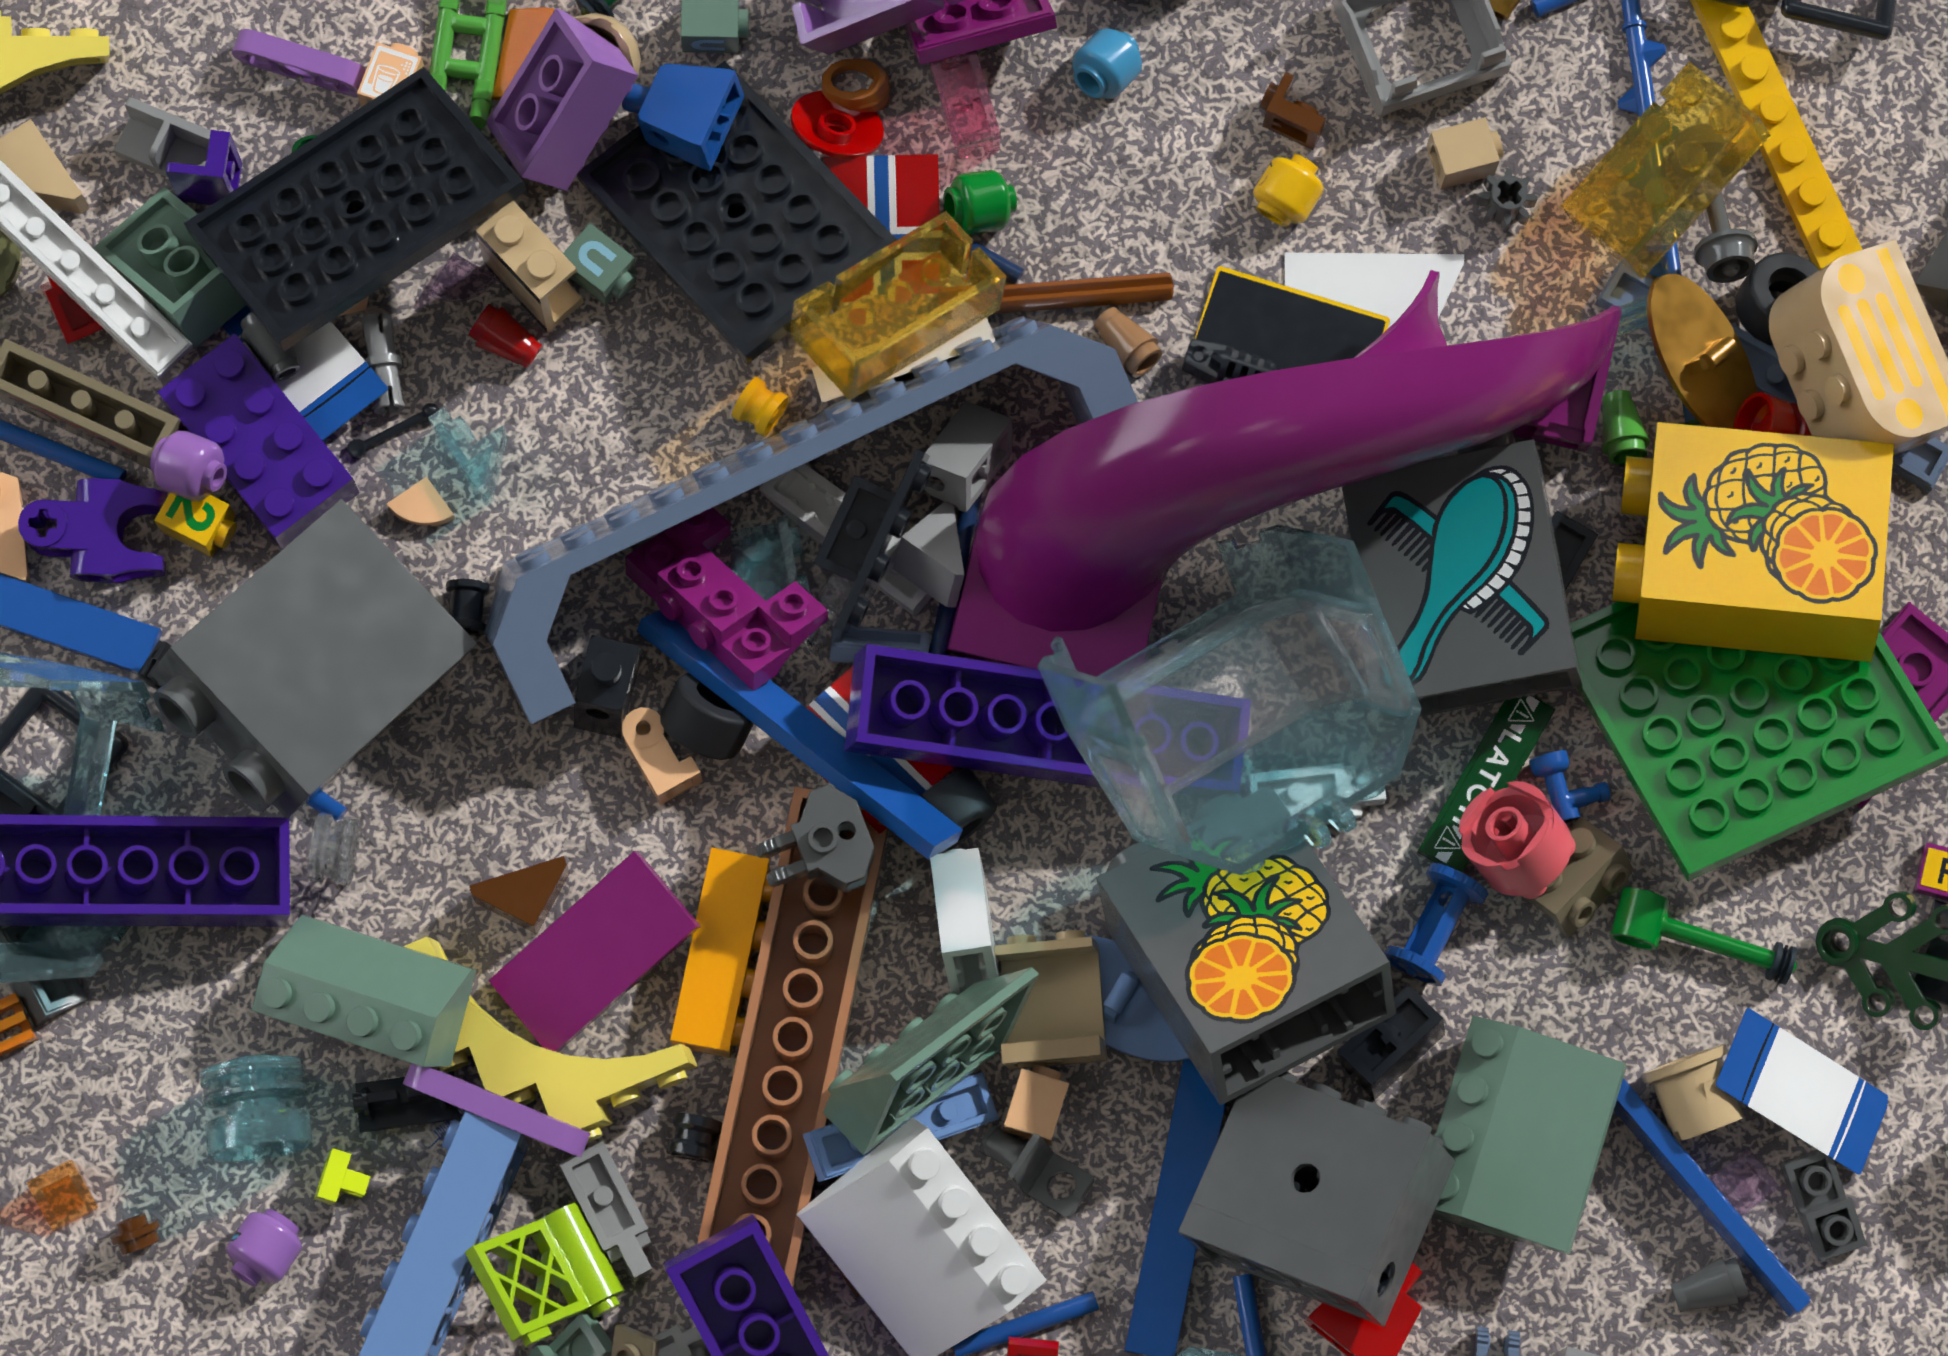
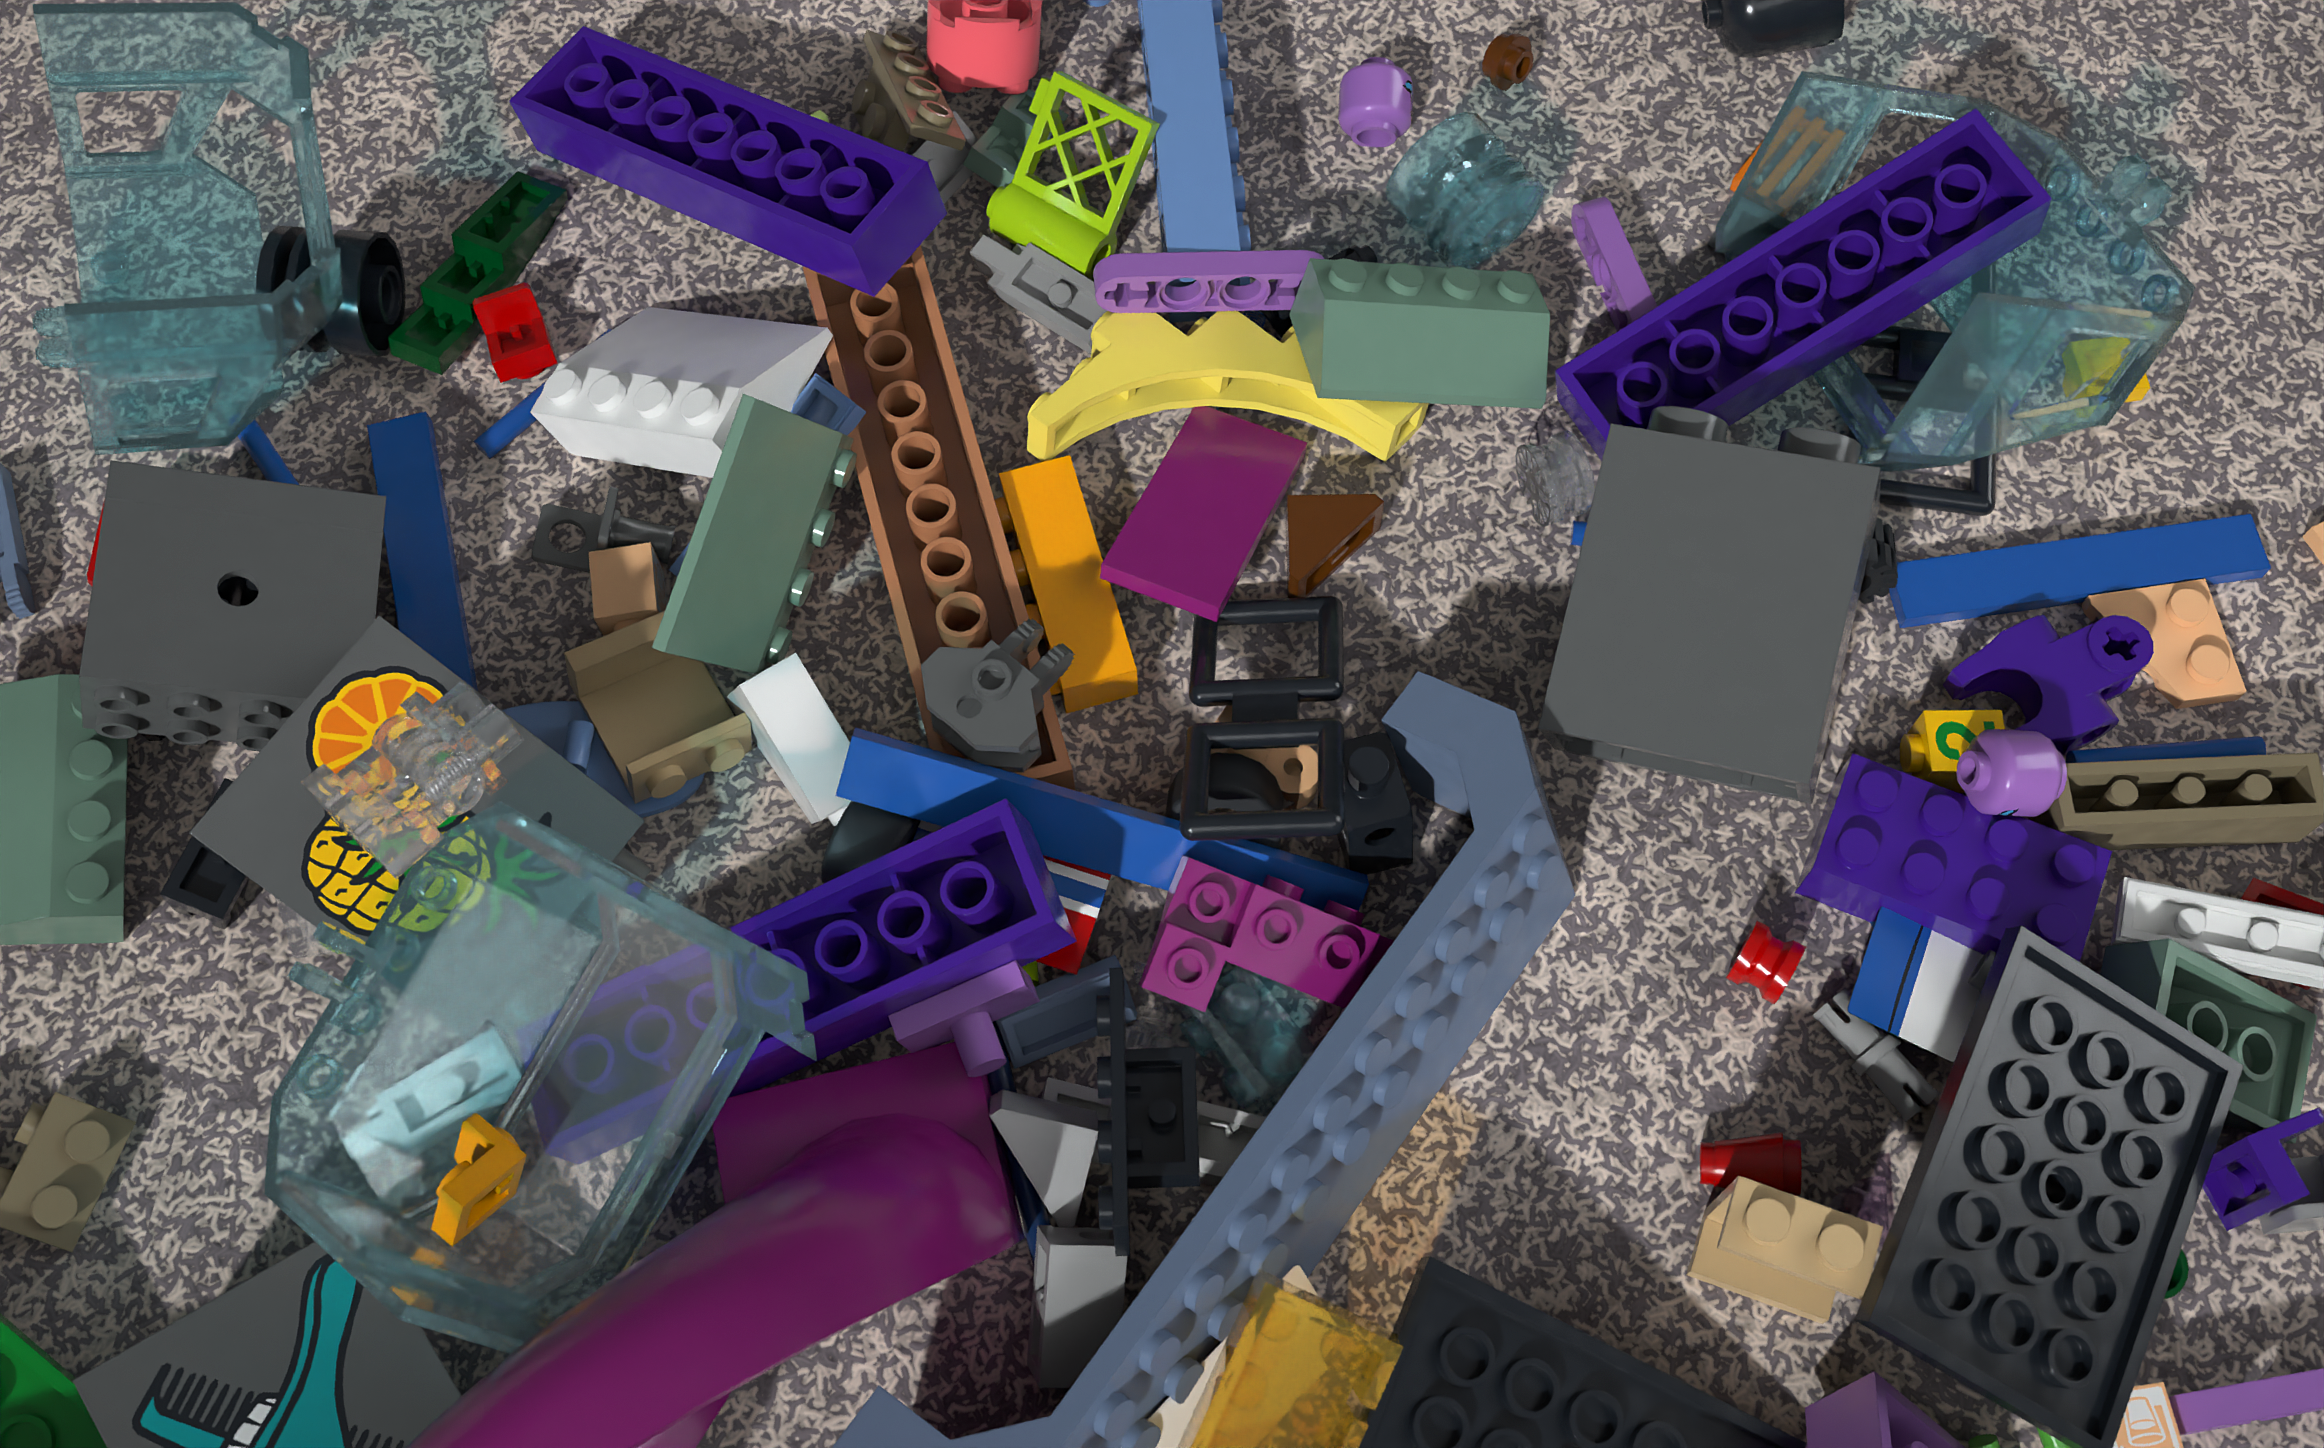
camera: 160 degrees right, 10 degrees down
(62, 1194) = (1605, 67): clear orange slope -> none
(178, 991) = (1611, 261): none -> medium lavender beam
(338, 1178) = (1338, 189): neon yellow tile -> none
(358, 448) = (1832, 942): black hinge -> none
(414, 450) = (1765, 962): none -> red wheel
(421, 505) = (1712, 909): light nougat tile -> none
(467, 604) = (1583, 811): black bush -> none
(477, 462) = (1680, 980): clear light blue slope -> none
(601, 265) = (1697, 1323): sand green brick -> none
(647, 750) = (1263, 718): none -> black bar
(694, 1137) = (994, 393): black wheel -> none
(760, 406) = (1380, 1242): yellow wheel -> none
(949, 639) = (967, 1017): none -> medium lavender tile
(1209, 911) = (417, 775): none -> clear hips
(1292, 678) = (480, 1182): none -> light orange bracket
(1436, 924) = (216, 1013): blue hose -> none
(1491, 766) = (221, 1208): dark green tile -> none
(1516, 839) = (170, 1133): coral brick -> none
(1566, 803) = (130, 1295): blue piece -> none

